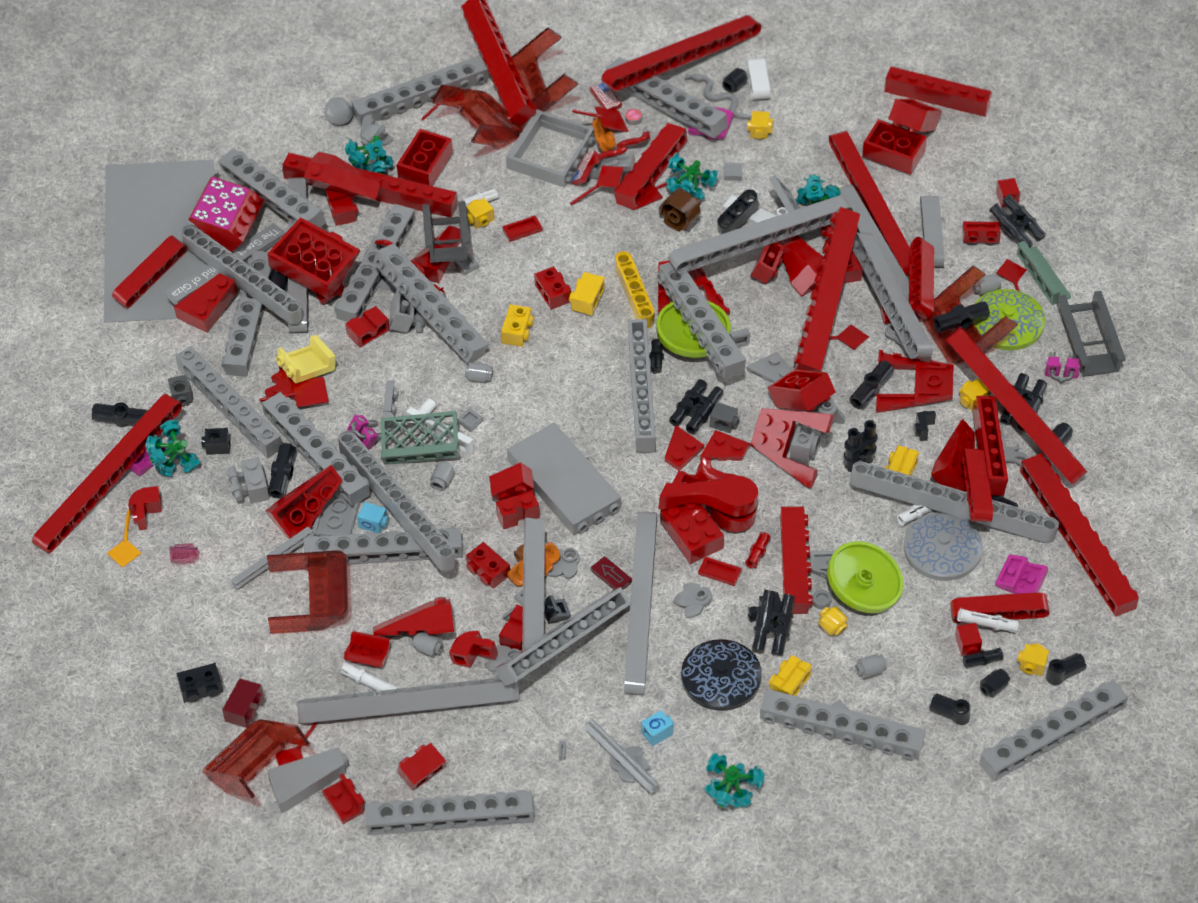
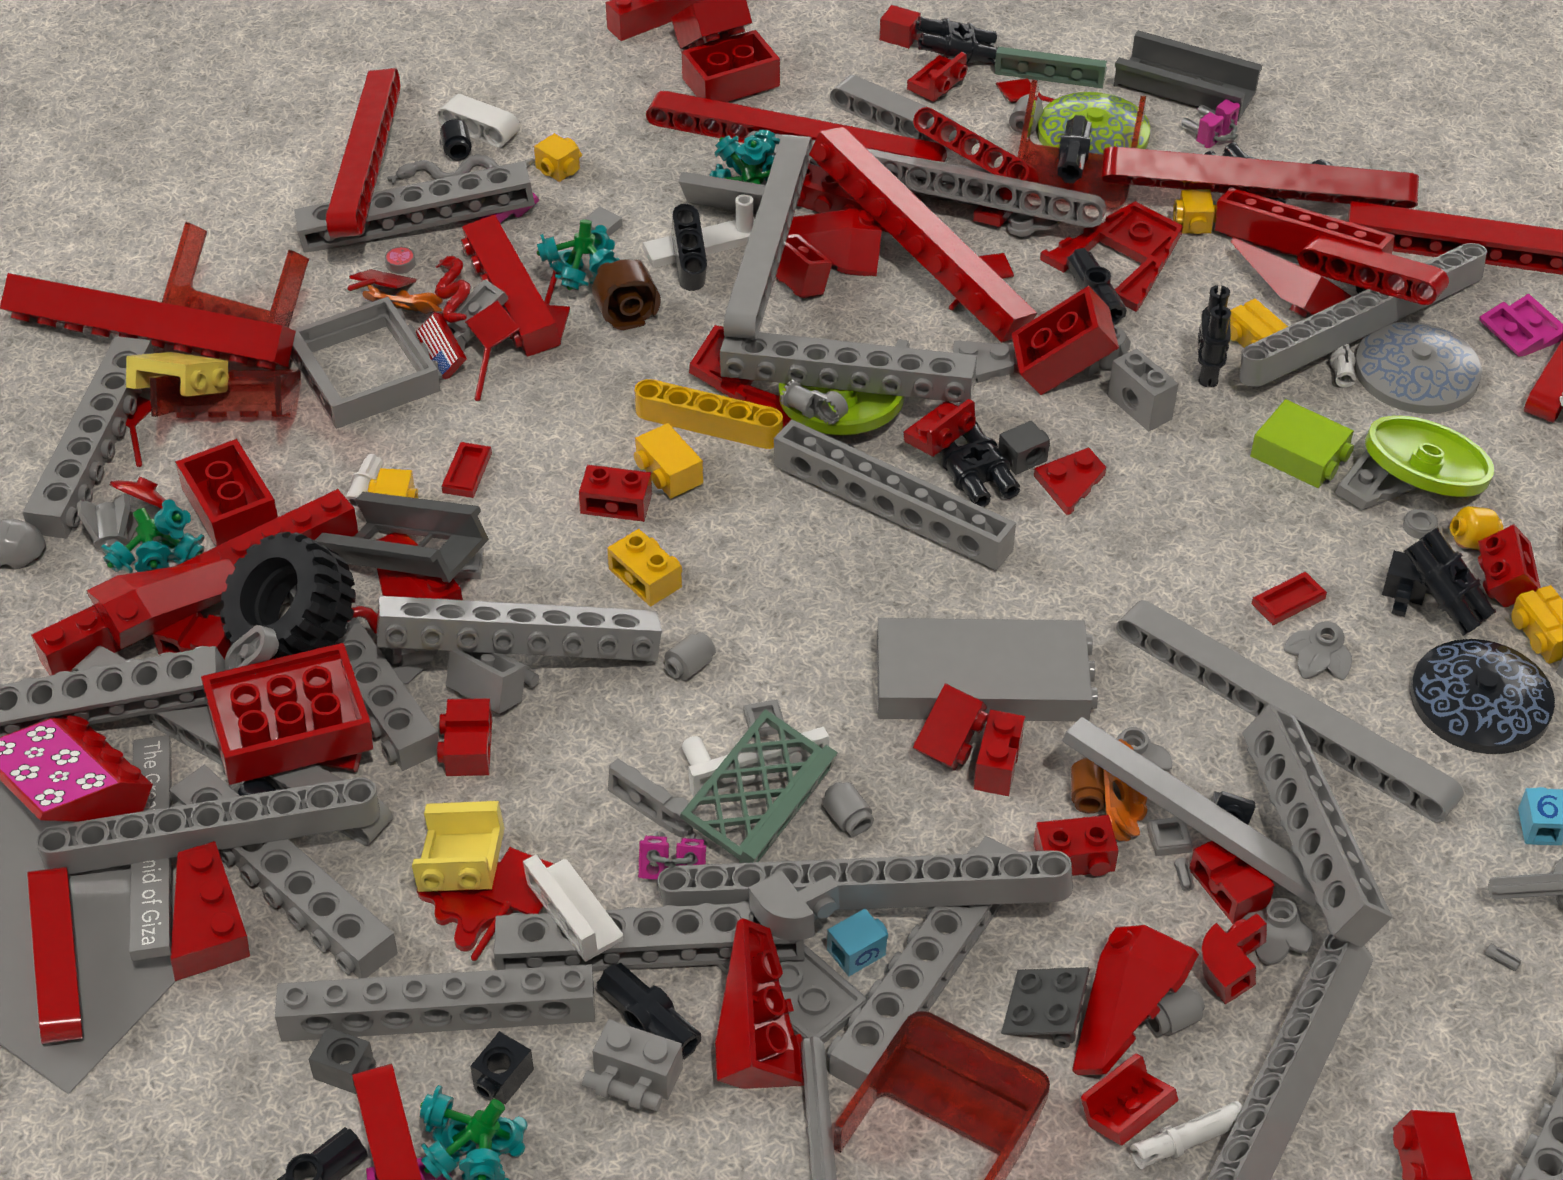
camera: 55 degrees left, 5 degrees down
(300, 411) = (572, 907): none -> white panel
(331, 224) = (253, 647): none -> light grey plate
(355, 480) = (792, 912): none -> light grey brick
(372, 217) = (268, 575): none -> black tyre
(396, 598) = (1047, 1003): none -> dark grey hinge
(397, 132) = (142, 489): none -> red dish
(475, 92) = (197, 373): none -> light yellow panel
(605, 96) = (334, 266): tile -> none
(611, 574) = (1203, 716): dark red tile -> none
(661, 318) = (814, 402): none -> light grey connector
(682, 448) = (1035, 520): red wing -> none
(692, 531) = (1200, 581): red brick -> none
(699, 377) = (941, 427): none -> red bracket
(727, 496) = (1176, 513): red animal -> none
(757, 550) = (1287, 538): red pin -> none
(774, 435) = (1107, 404): wing -> none
(794, 557) = (1329, 506): red brick -> none
(813, 643) = (1508, 565): none -> red brick
(830, 523) = (1302, 444): none -> lime brick
(924, 419) = (1203, 276): black bracket -> none

